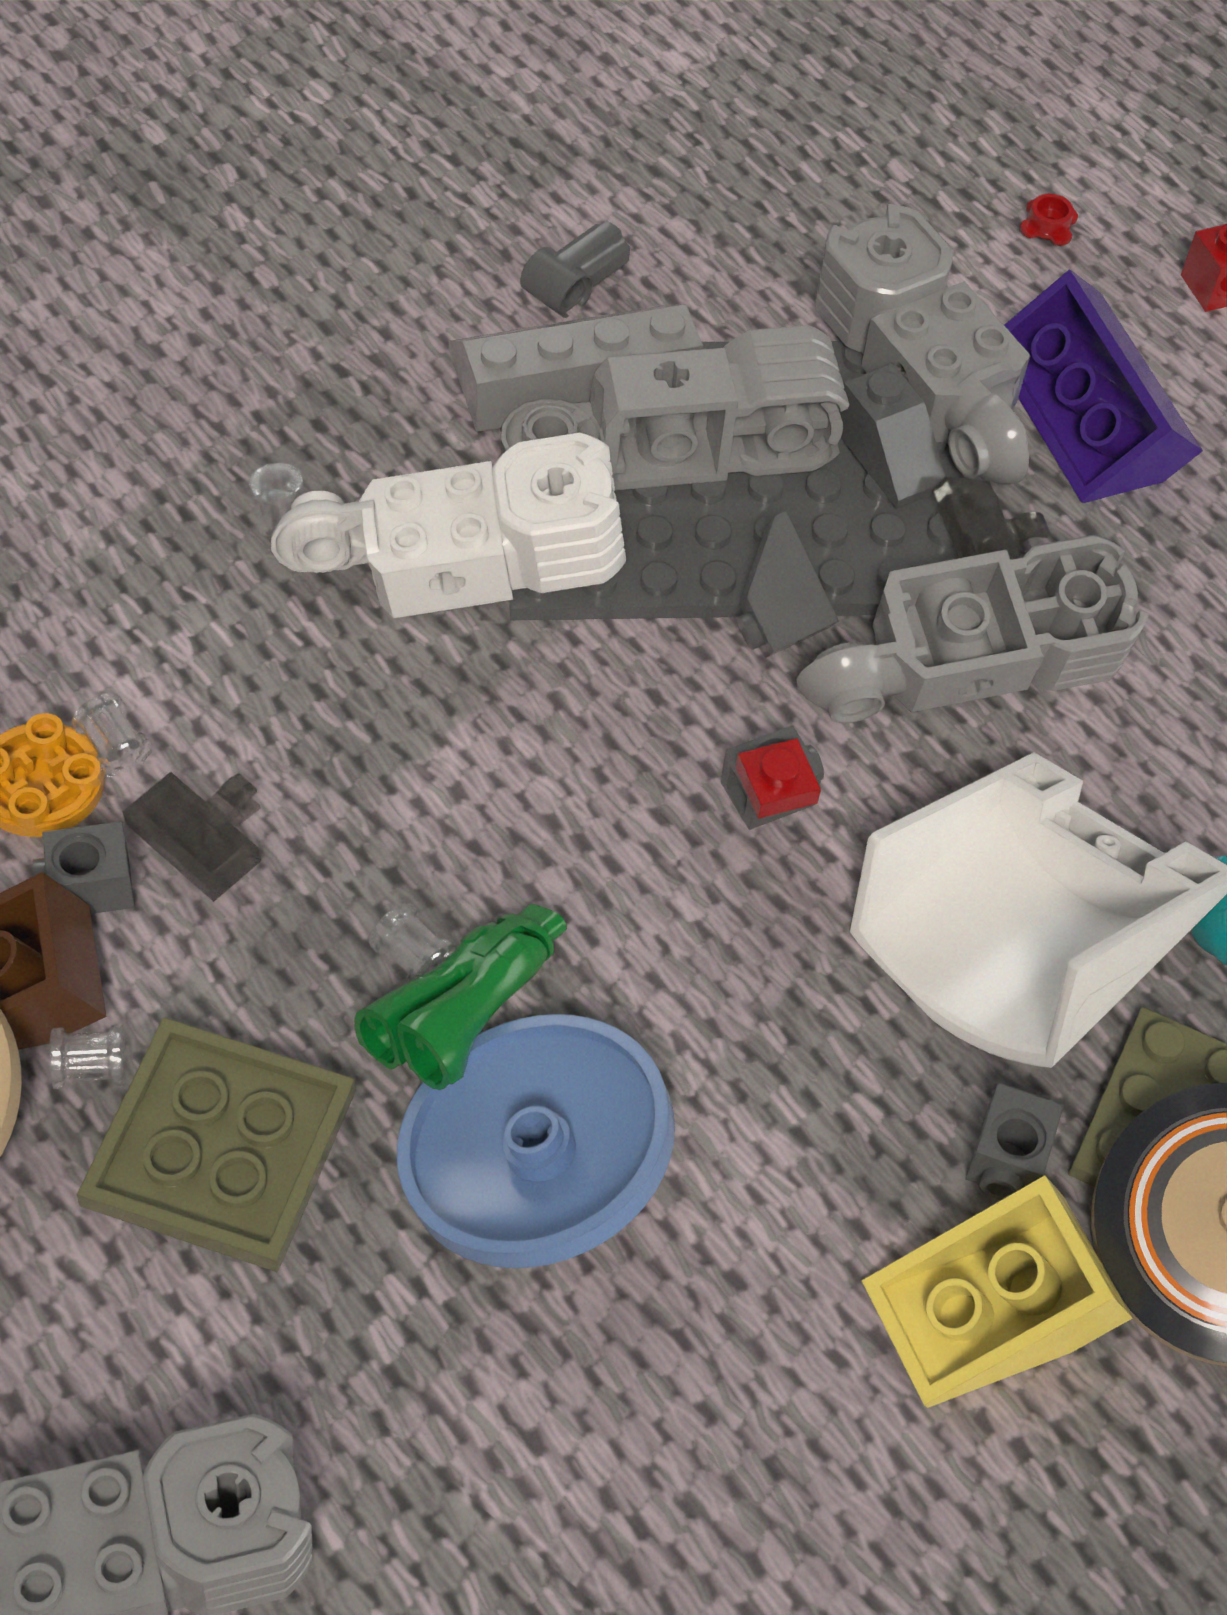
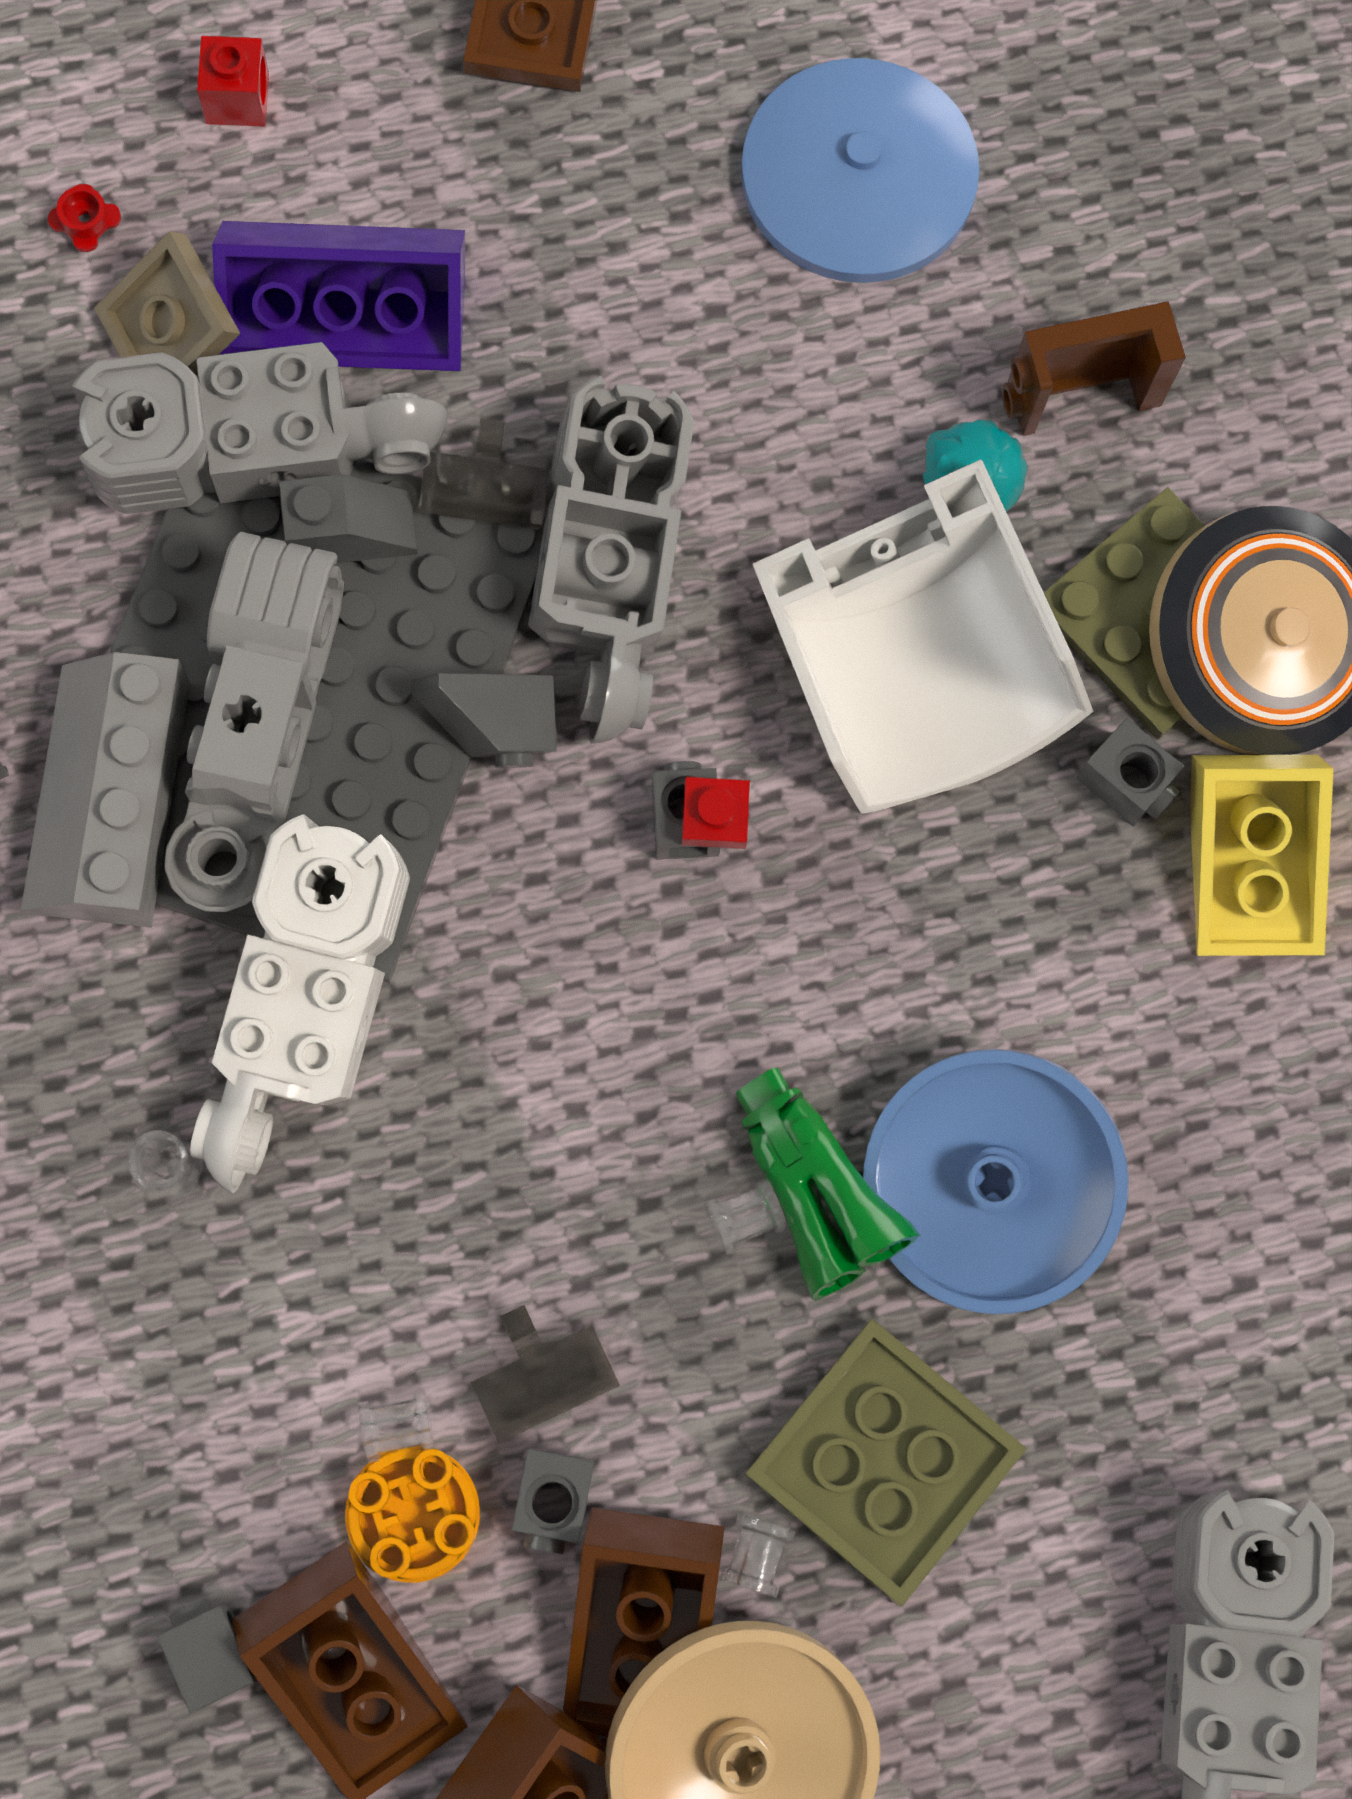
camera: 70 degrees left, 20 degrees up
(1010, 274) = (168, 307): none -> dark tan plate

